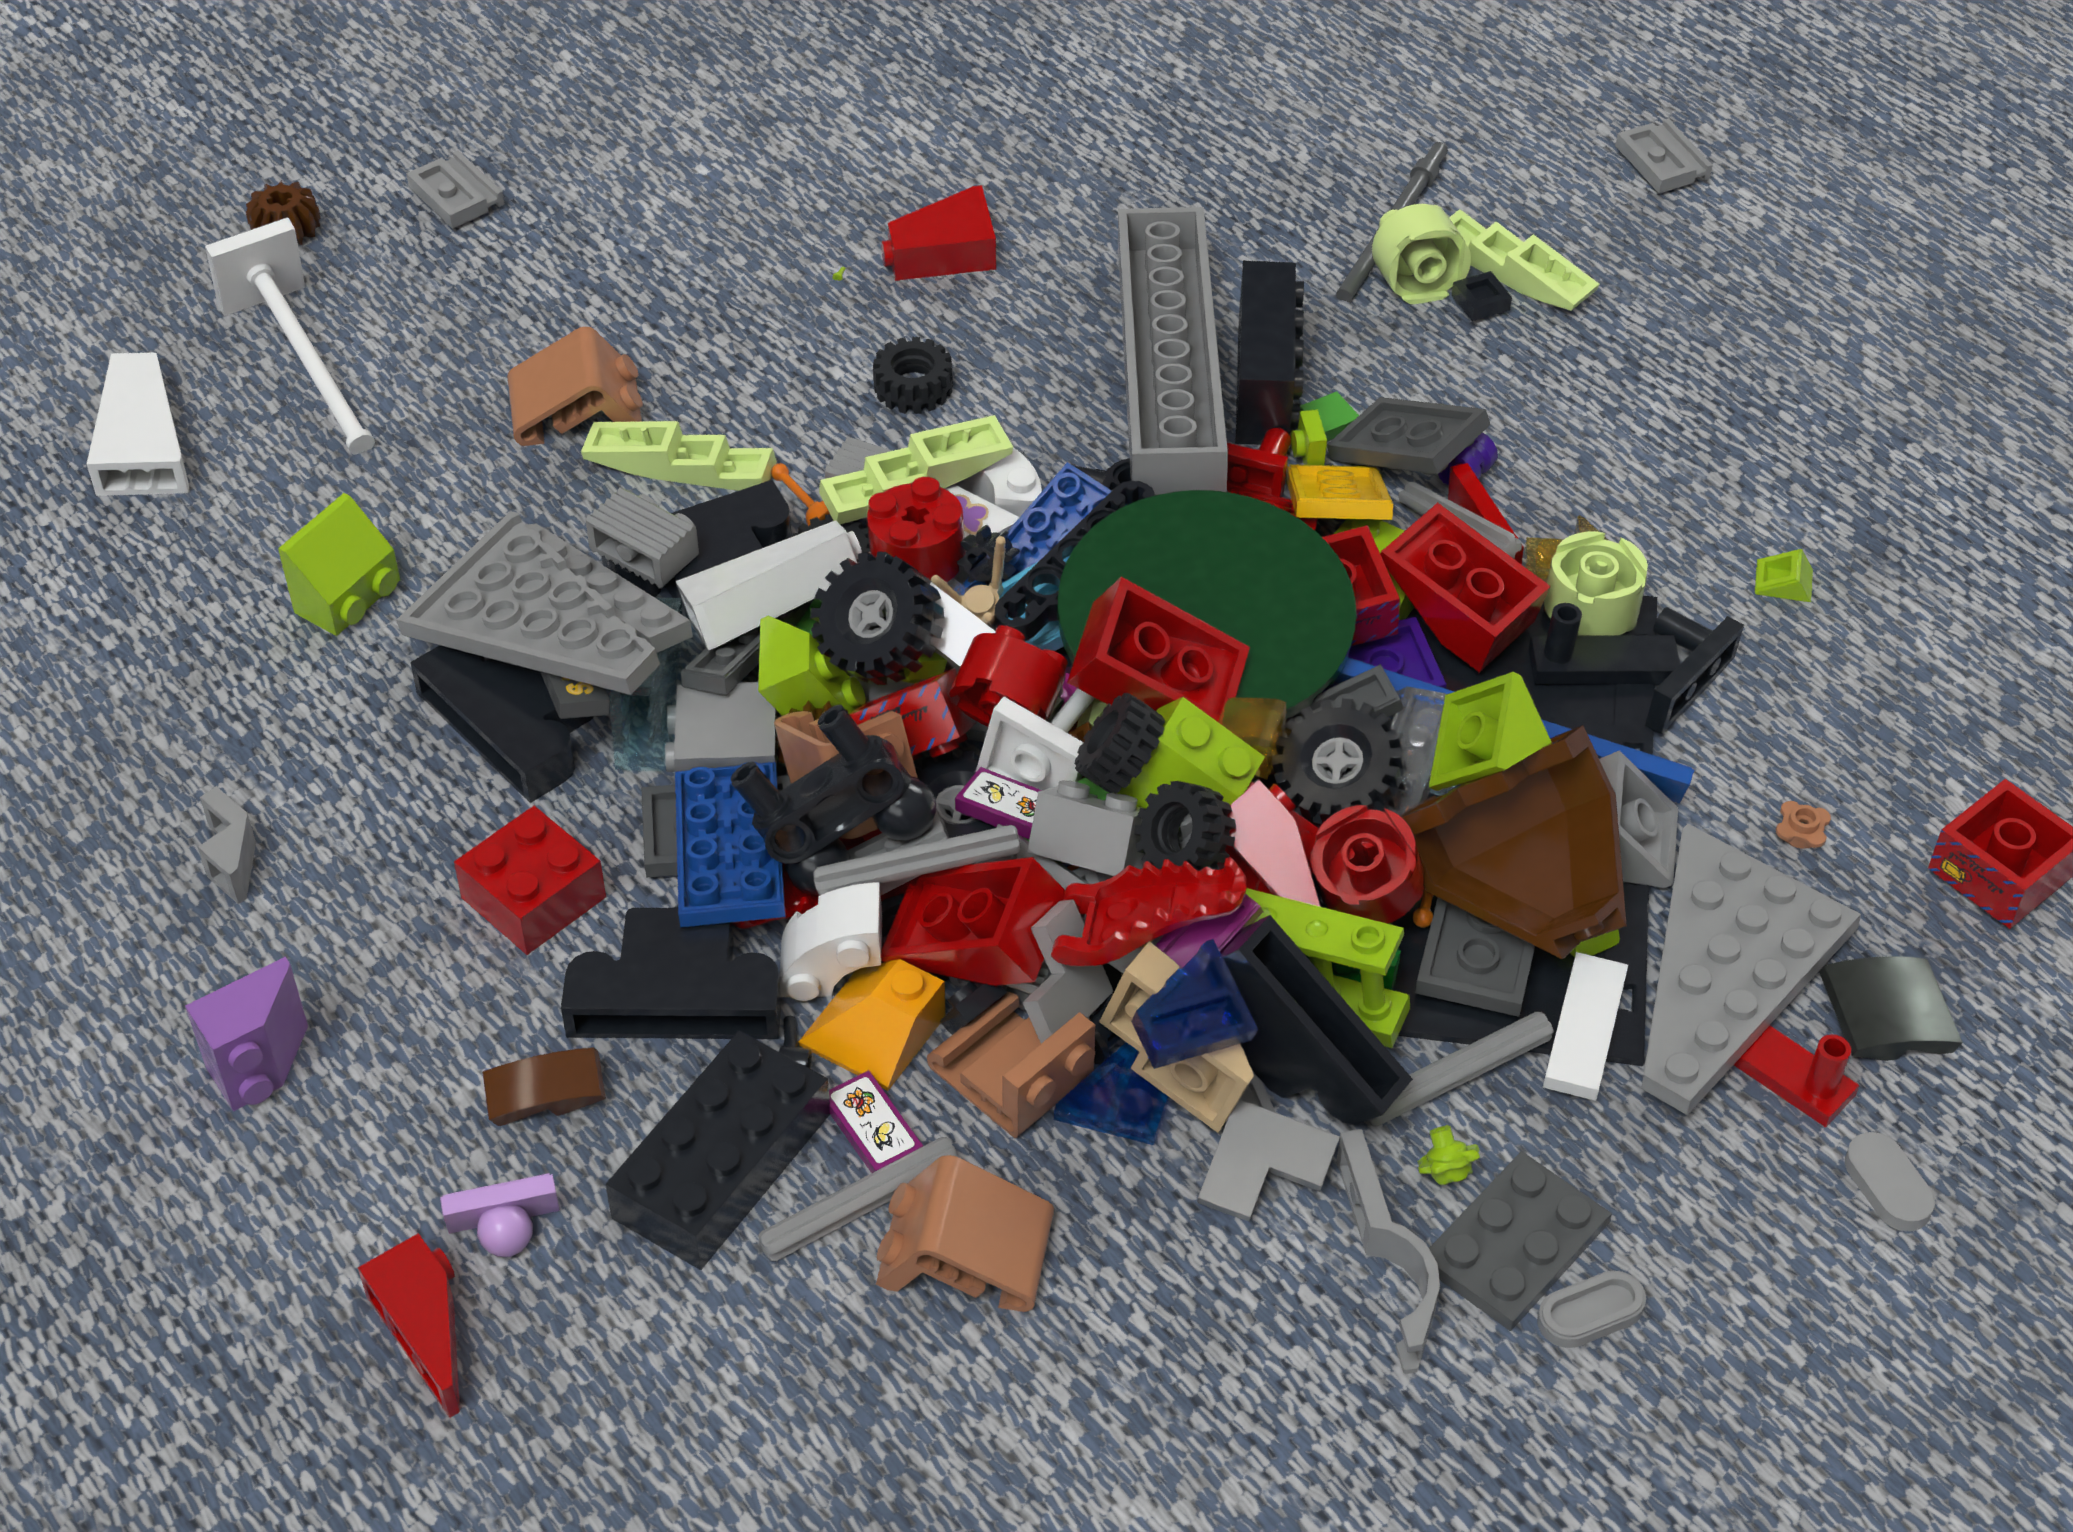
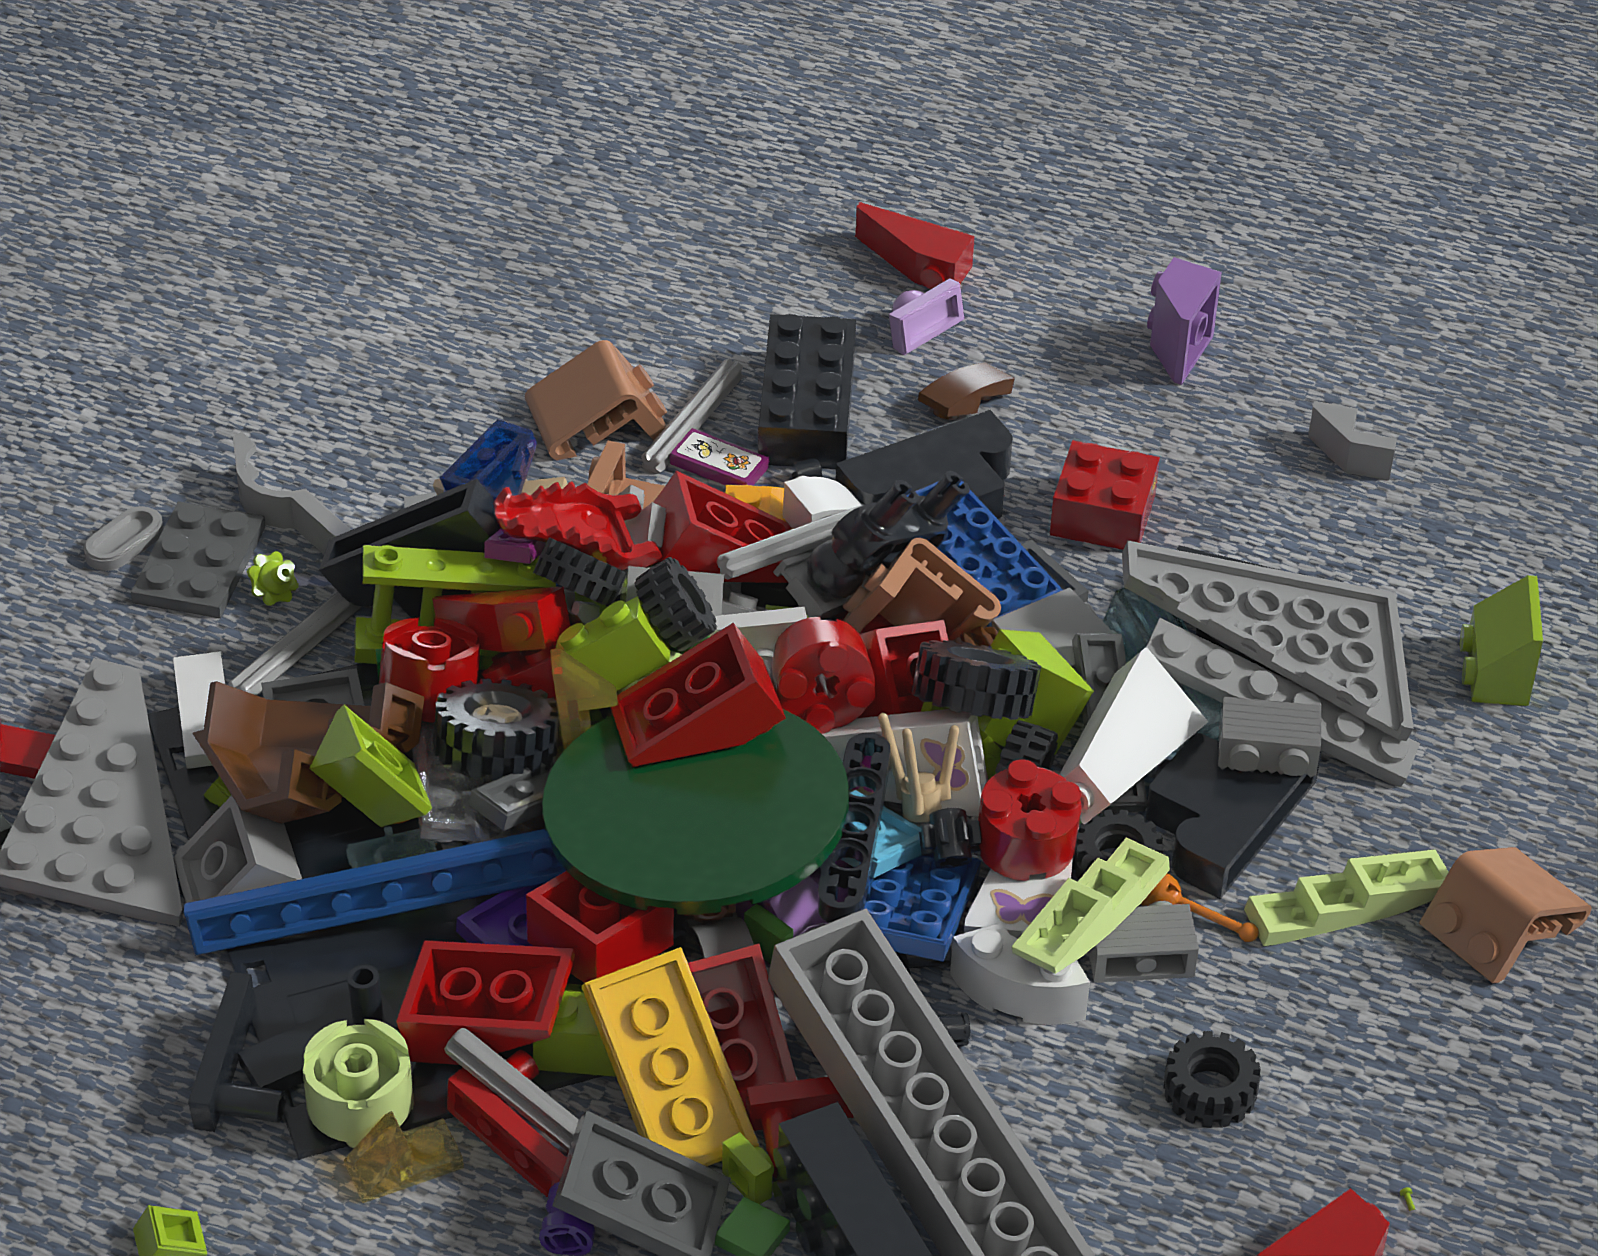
camera: 150 degrees right, 5 degrees down
(1801, 834) = (69, 971): nougat plate -> none

